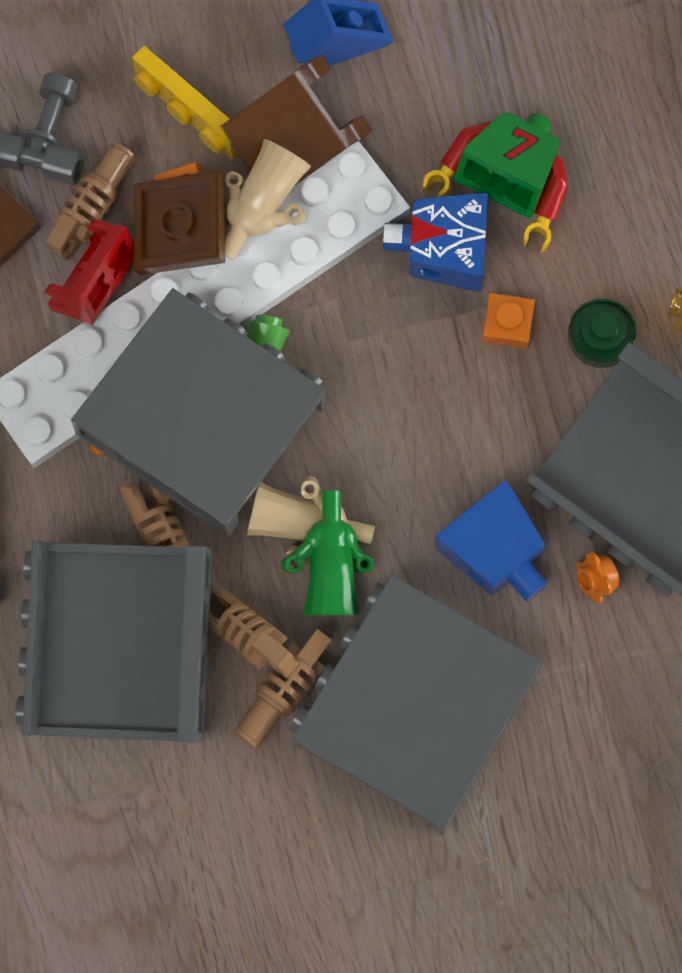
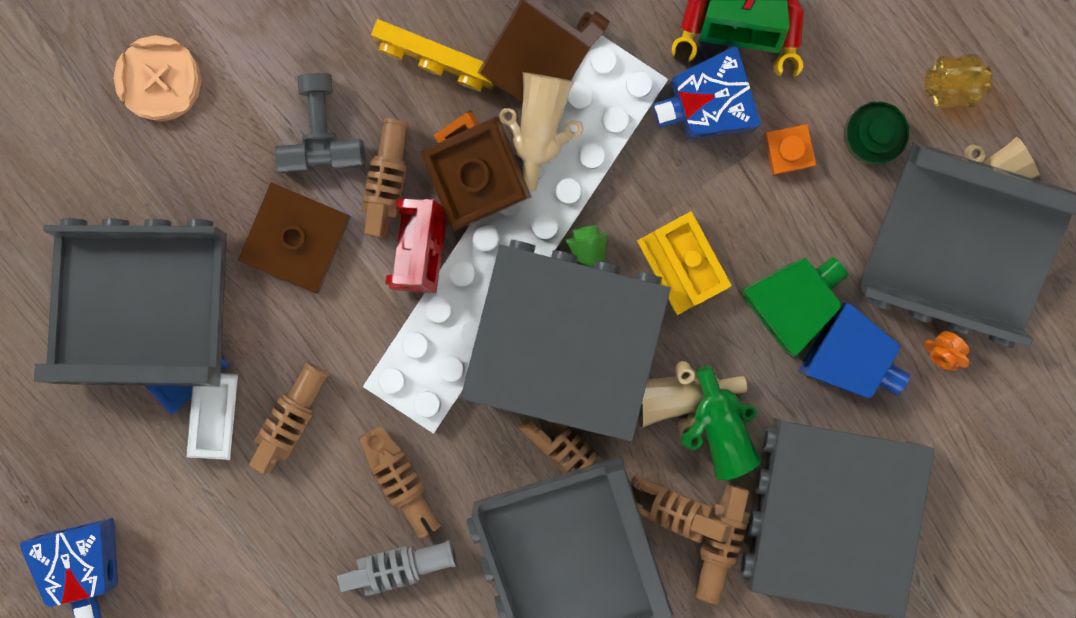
camera: 25 degrees left, 15 degrees up
(356, 389) = (684, 262): none -> yellow plate
(455, 465) = (796, 301): none -> green torso

